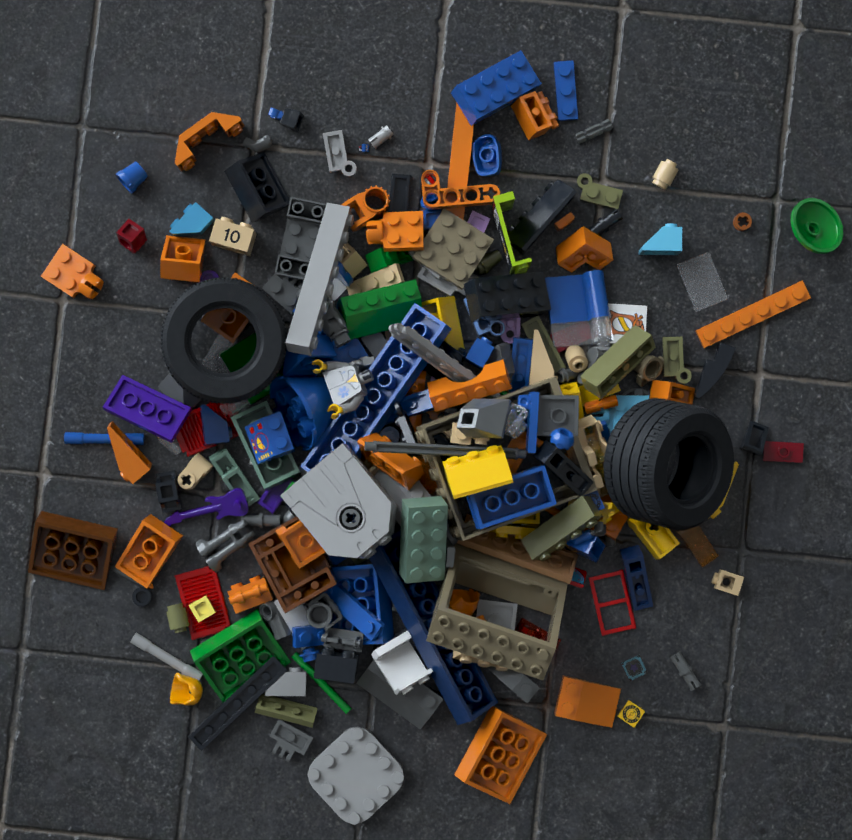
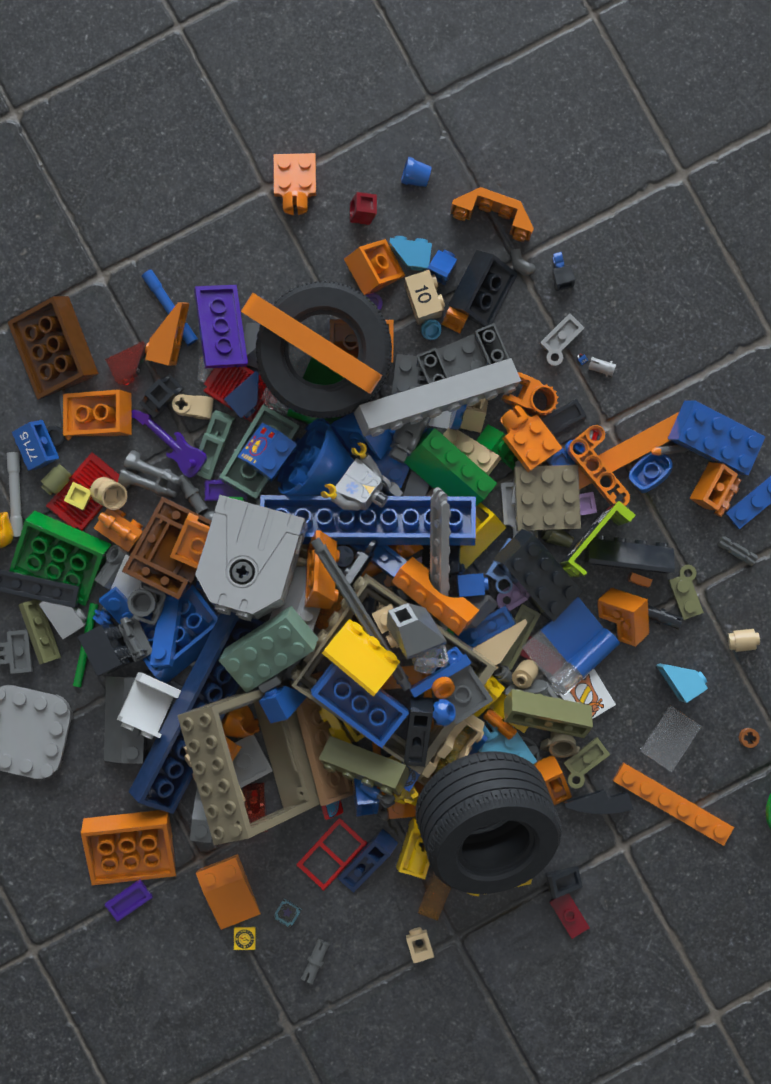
camera: 55 degrees right, 0 degrees up
(125, 500) = (127, 364): none -> clear red slope
(139, 615) = (35, 445): none -> blue brick
(213, 346) = (311, 343): none -> orange beam
(217, 583) = (108, 493): none -> tan wheel
(218, 205) = (442, 266): none -> blue slope
(261, 248) = (431, 329): none -> dark azure plate
(266, 225) = (454, 319): none -> orange tile
(470, 558) = (281, 703): none -> blue slope
(480, 130) = (659, 451): none -> dark grey piece
(541, 783) = (128, 900): none -> dark purple tile
(543, 426) = (443, 687): none -> orange tile

